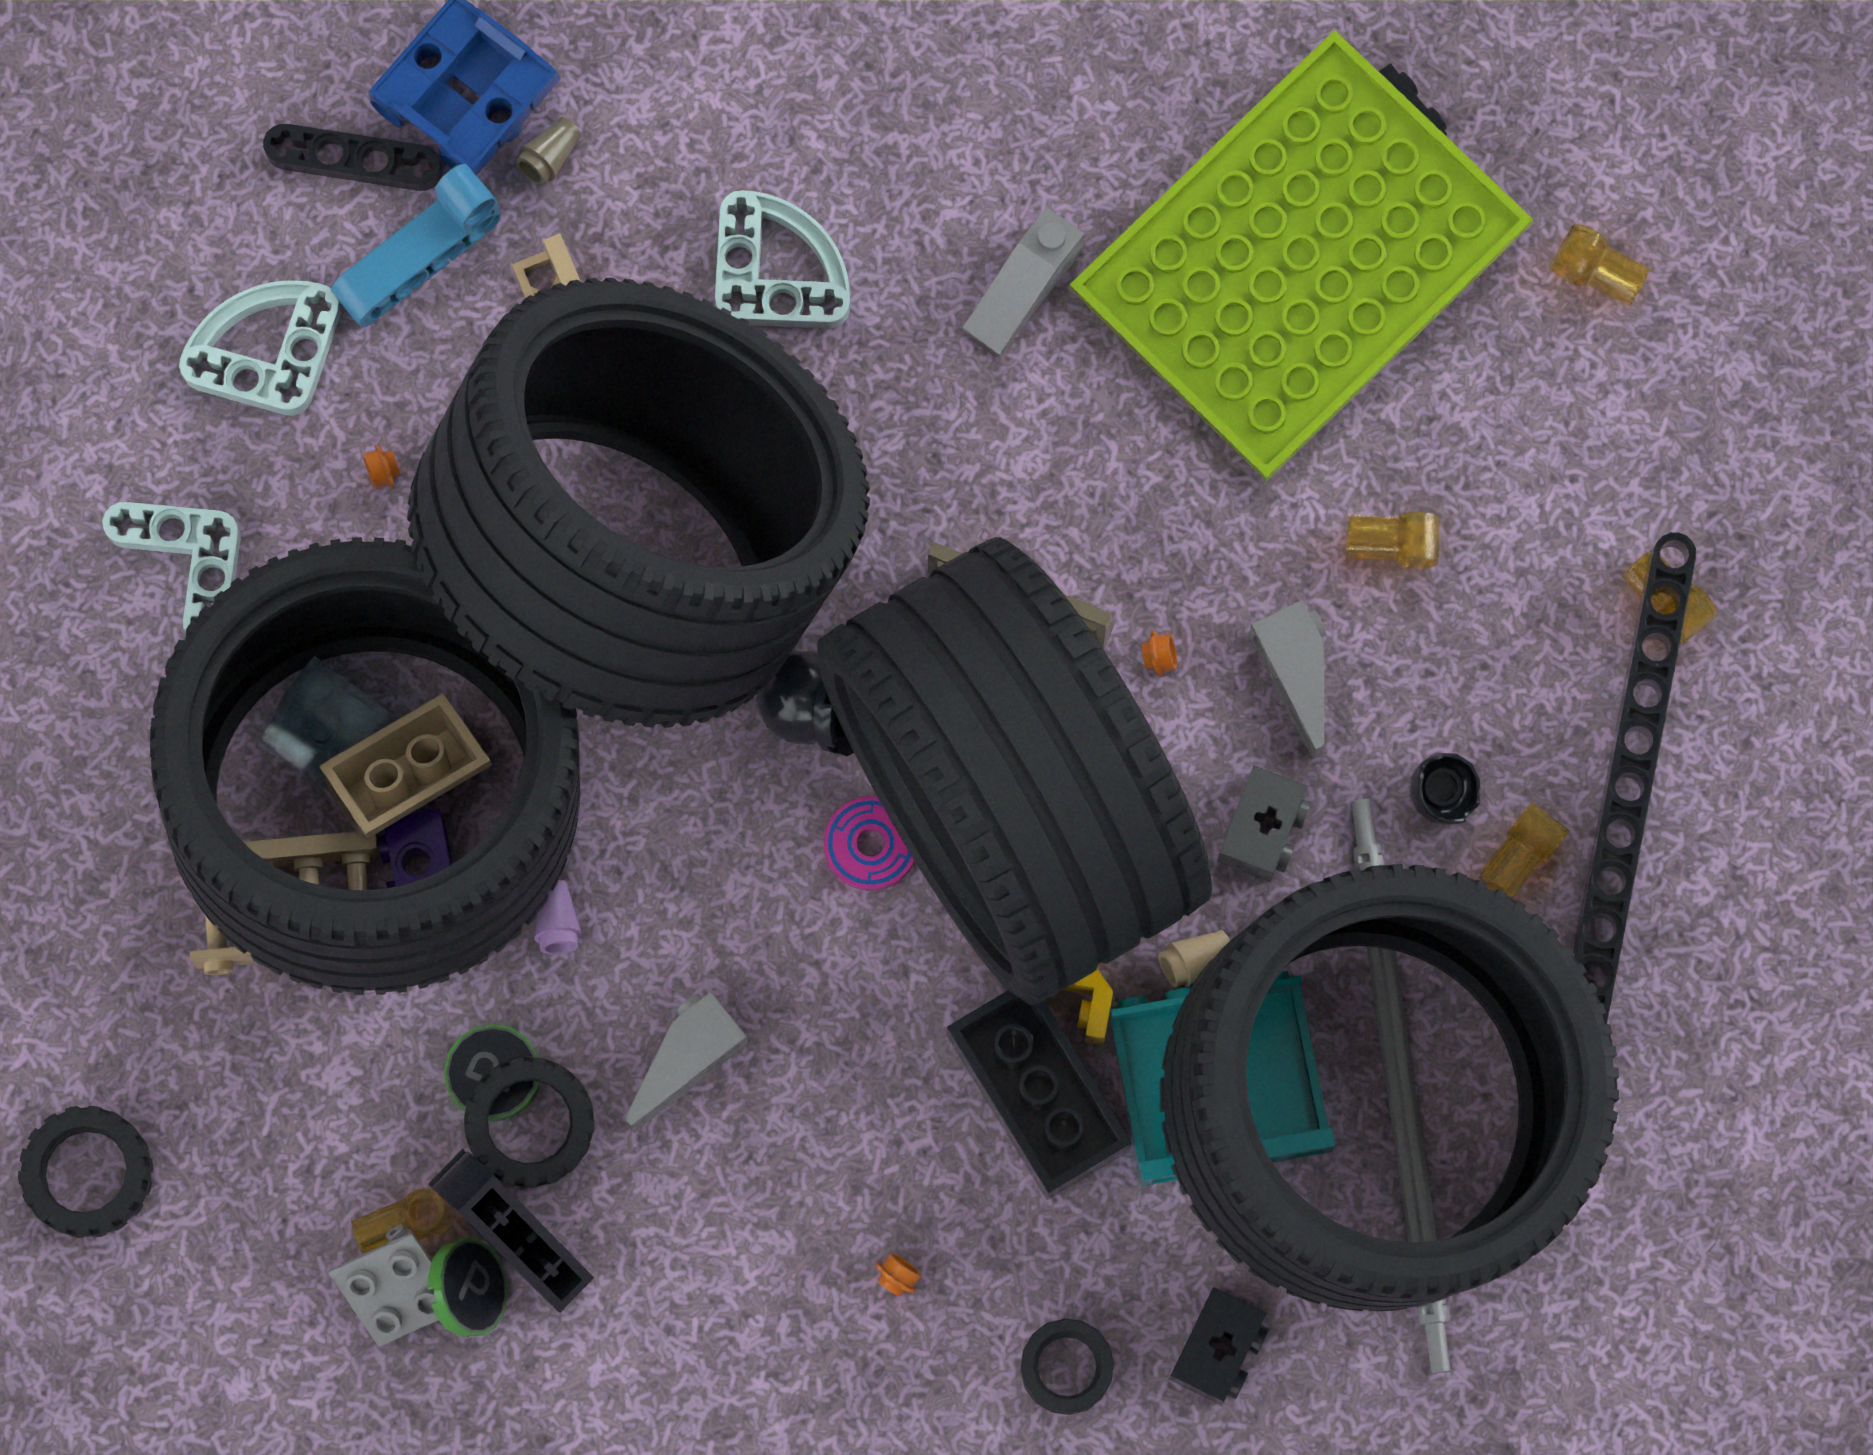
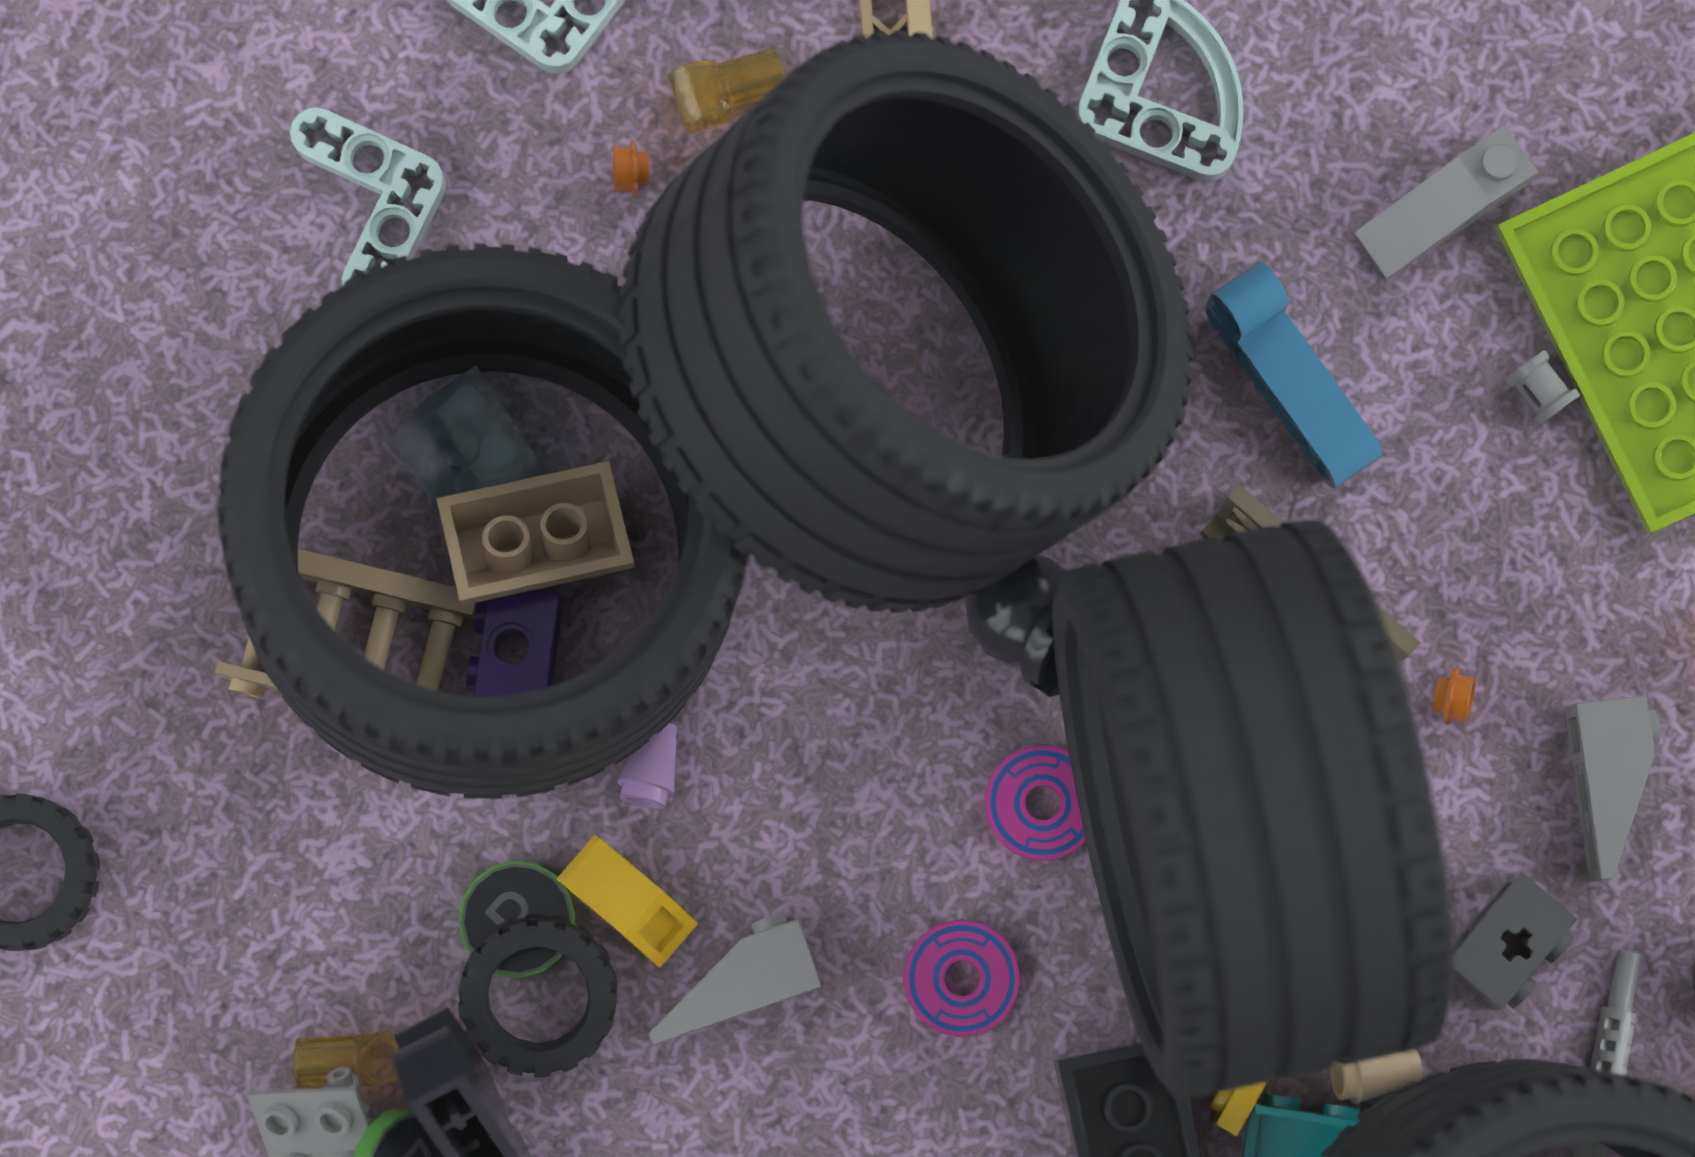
camera: 20 degrees right, 5 degrees up
(427, 386) = (715, 91): none -> clear yellow piece
(574, 1026) = (627, 901): none -> yellow slope
(849, 1026) = (996, 970): none -> dark pink tile
(949, 451) = (1291, 374): none -> dark azure beam
(1146, 397) = (1542, 388): none -> light grey bush

